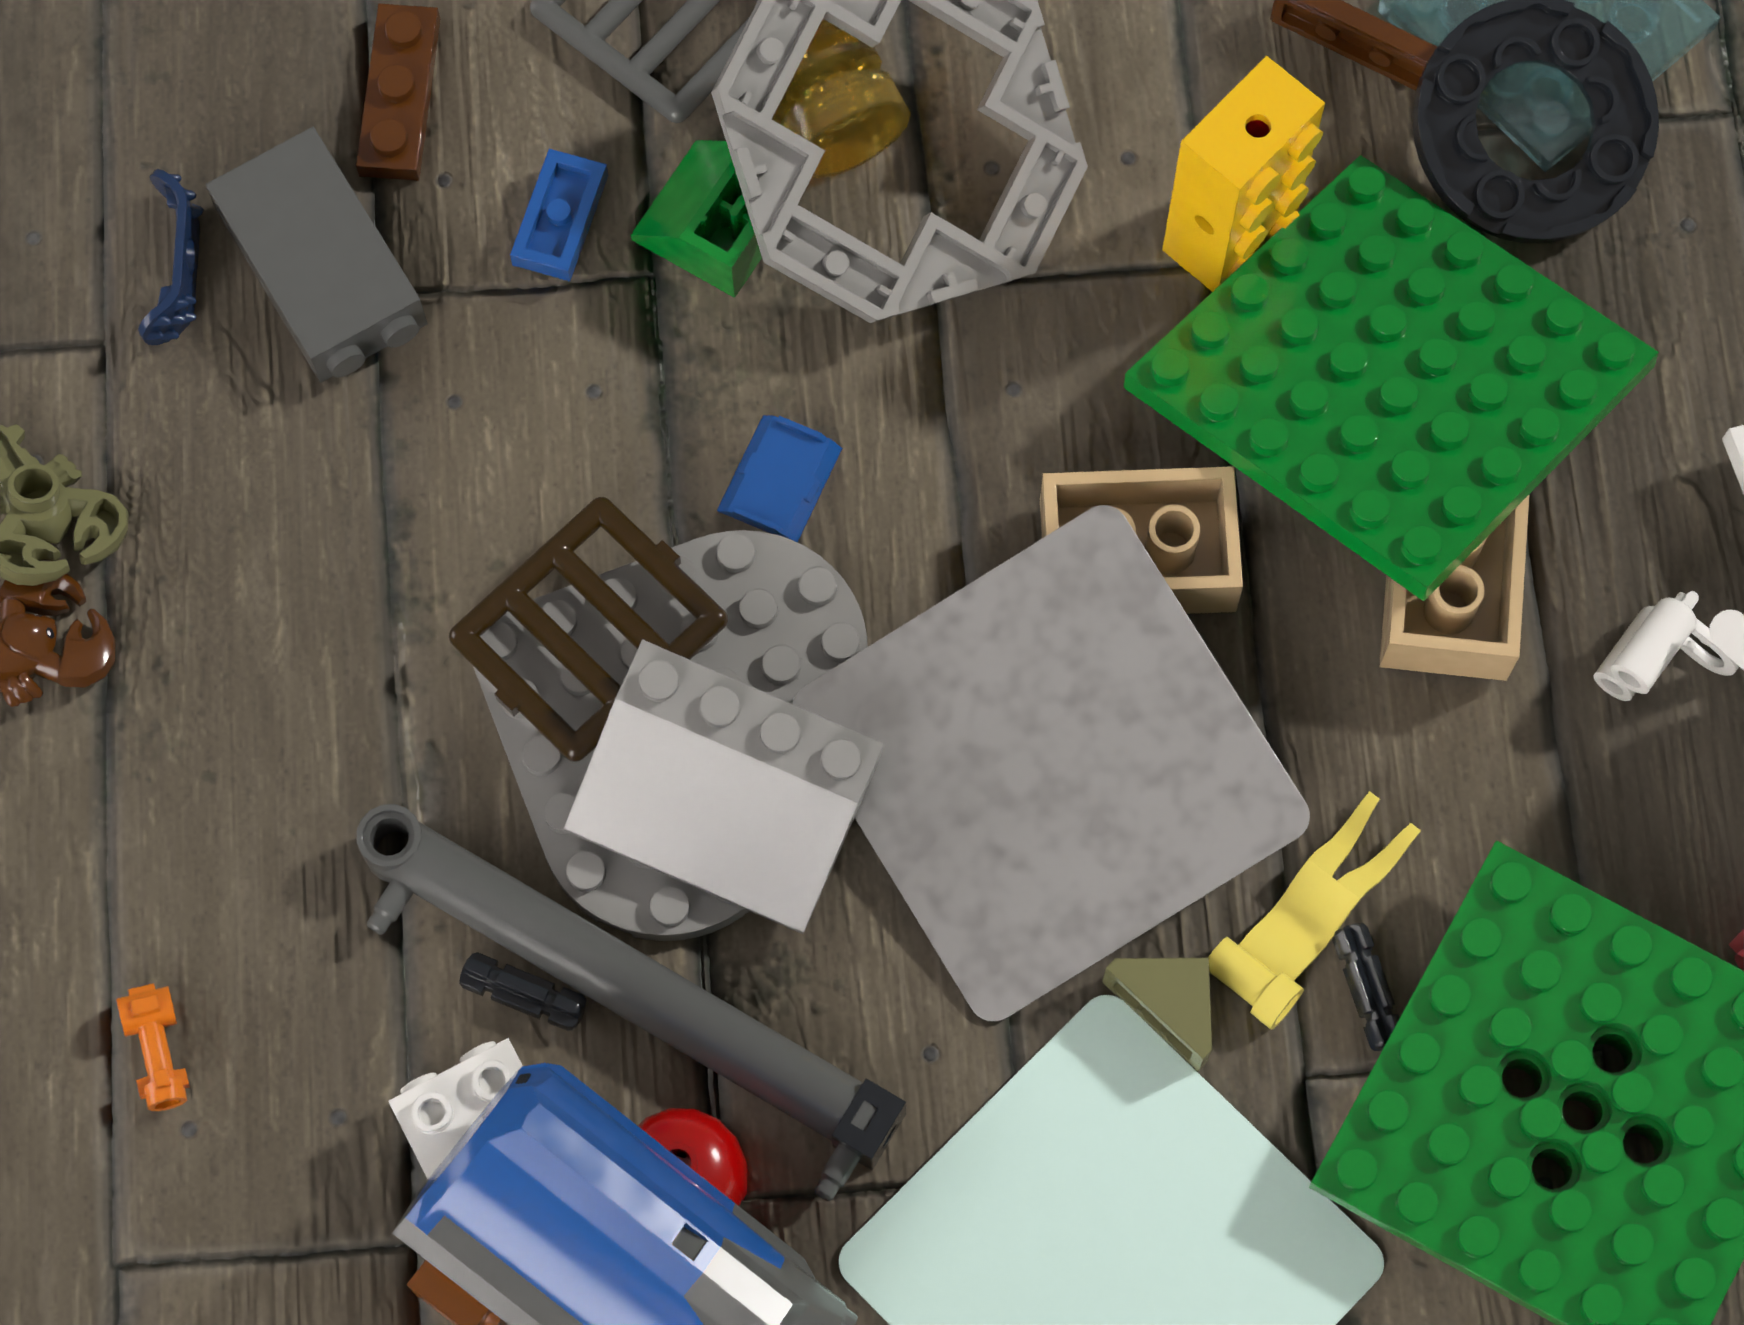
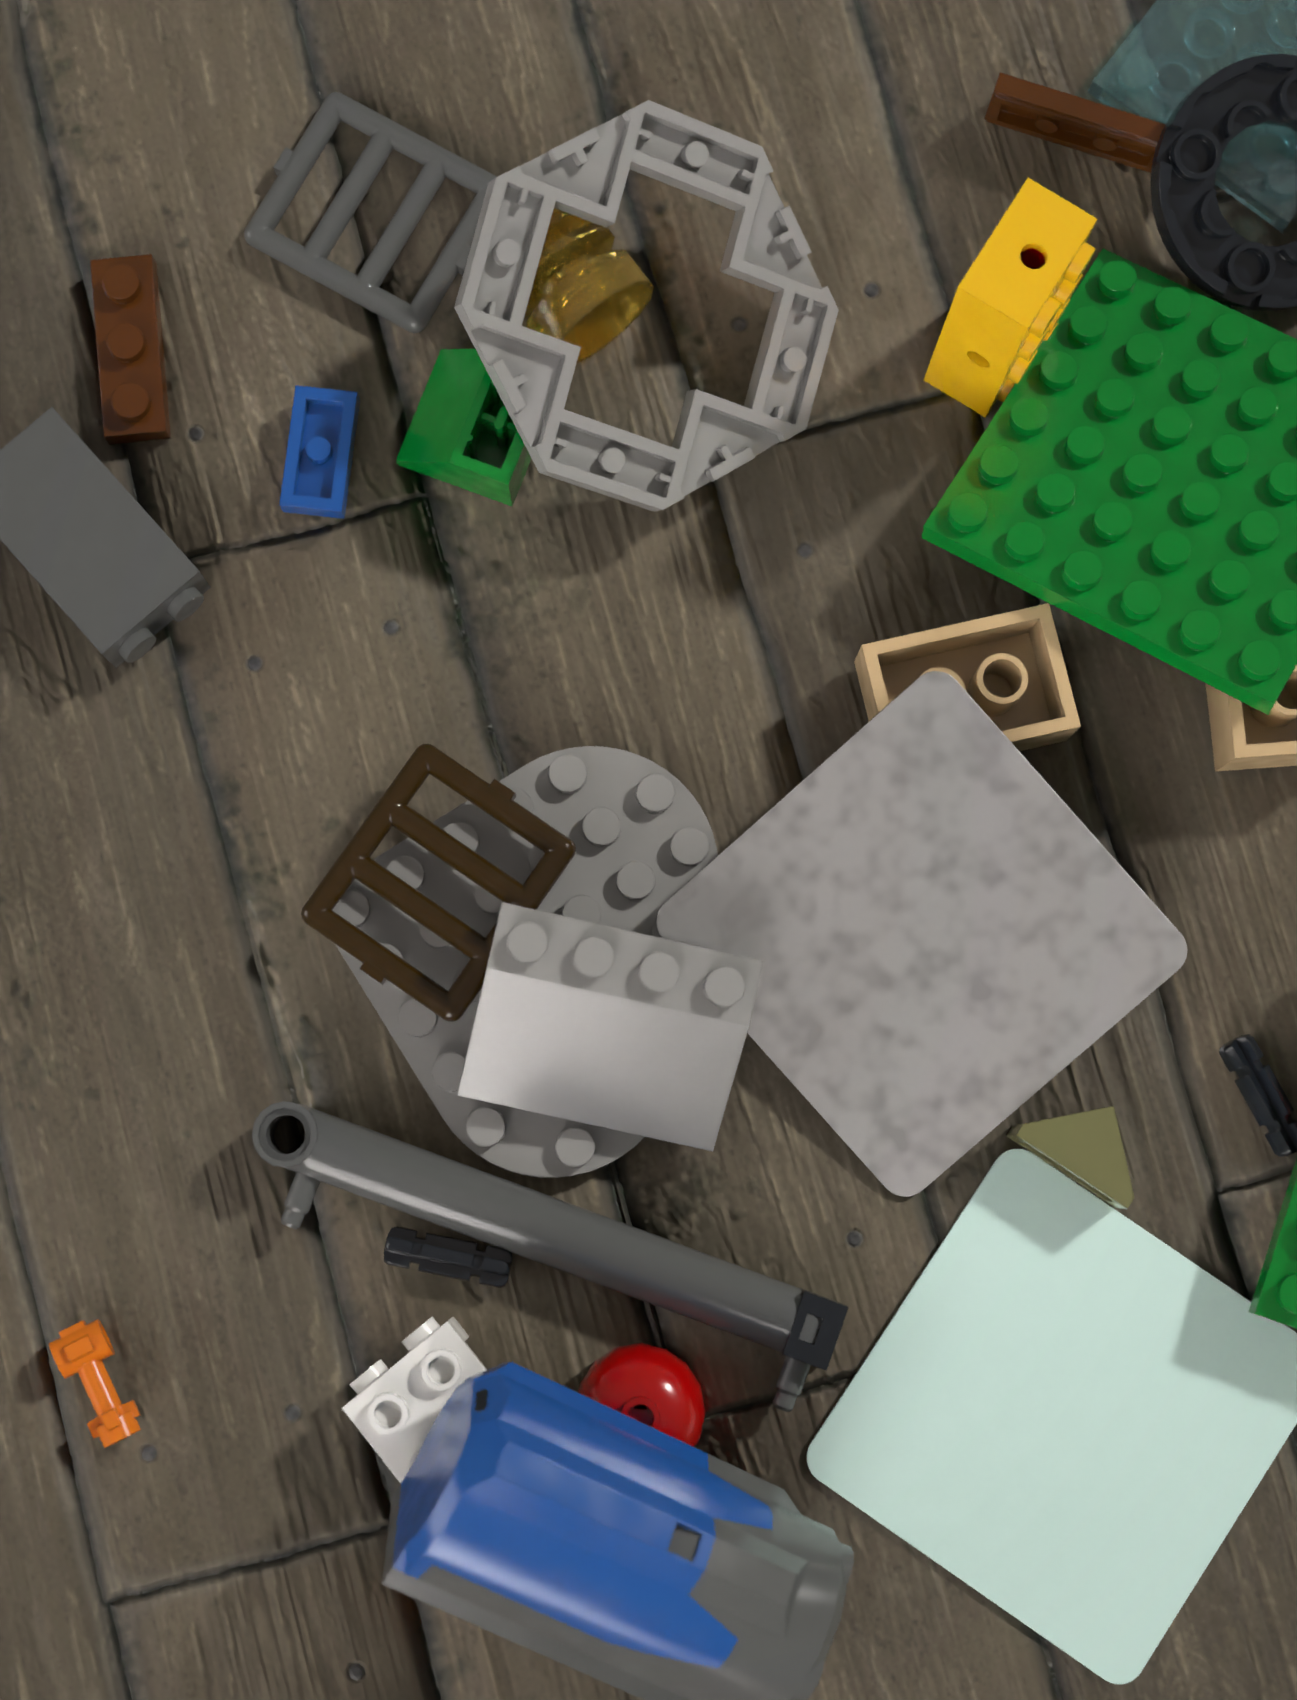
camera: 15 degrees left, 10 degrees up
(780, 477) = (593, 683): blue piece -> none
(1303, 920) = (1189, 1041): light yellow flag -> none

